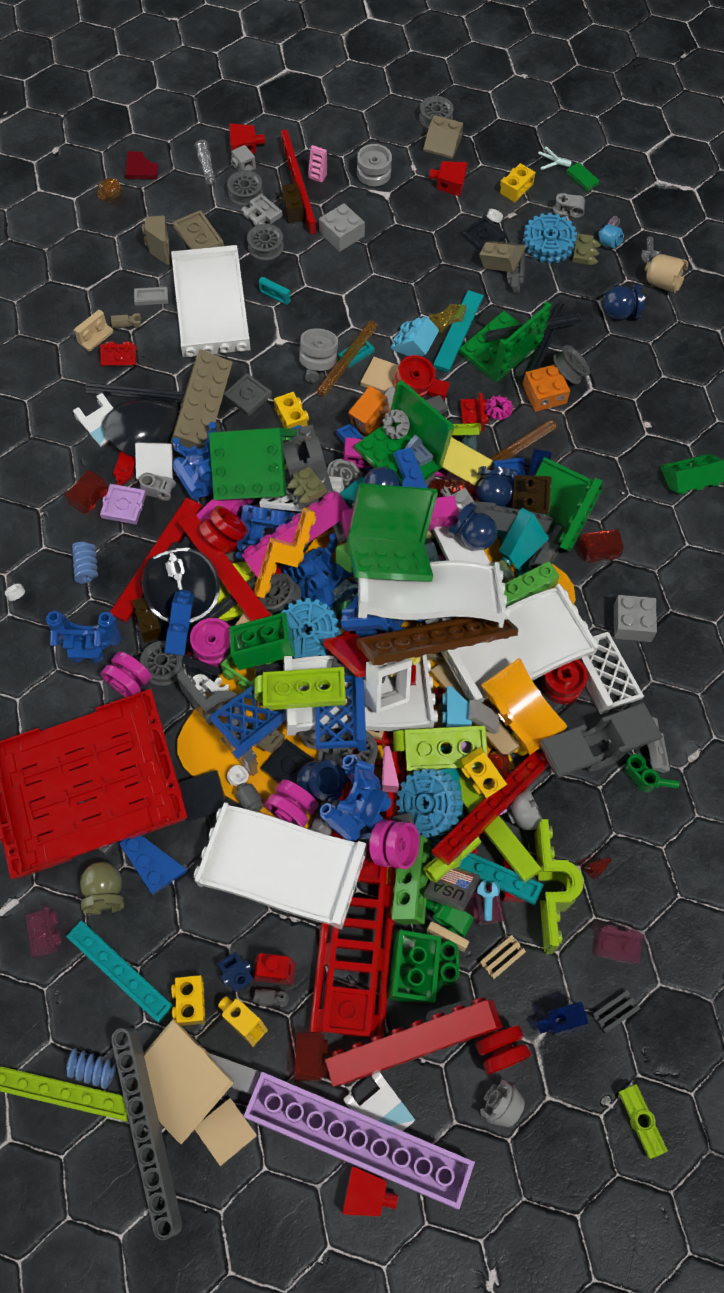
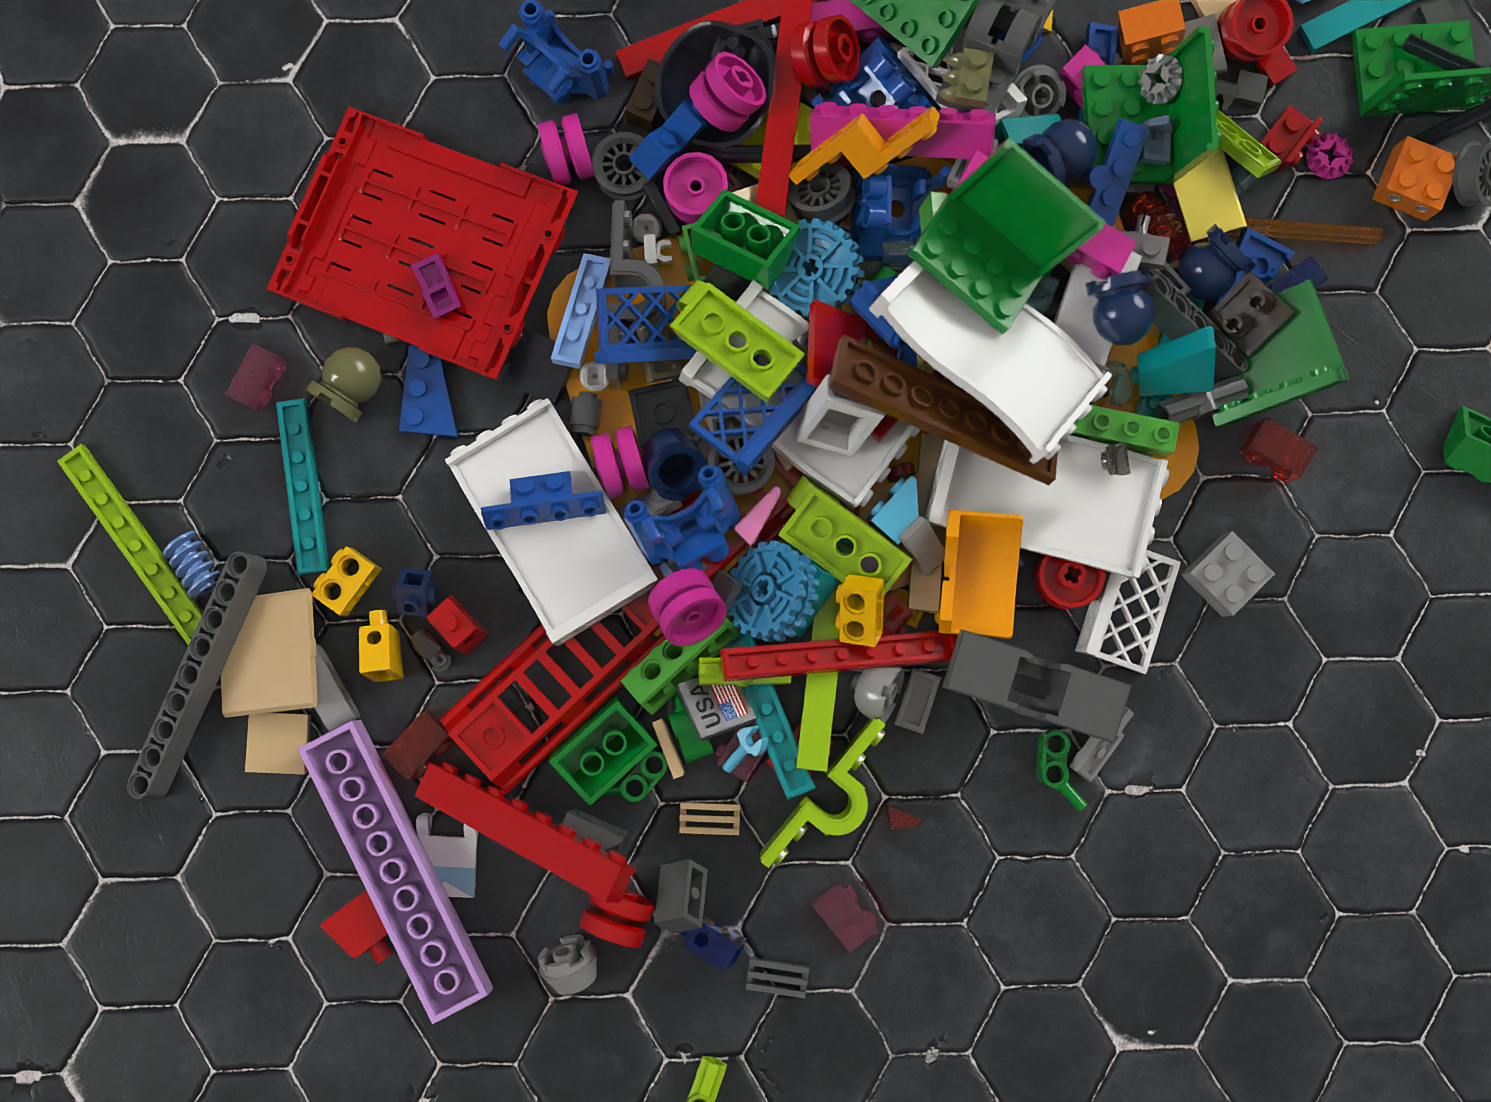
camera: 45 degrees right, 20 degrees up
(112, 796) = (436, 285): none -> magenta slope
(191, 581) = (727, 92): none -> dark pink wheel
(203, 747) = (581, 312): none -> light blue plate
(269, 854) = (543, 500): none -> blue bracket
(527, 1008) = (681, 896): none -> dark grey brick
(536, 600) = (1116, 459): none -> clear smoke plate
(549, 803) = (917, 700): none -> light grey tile

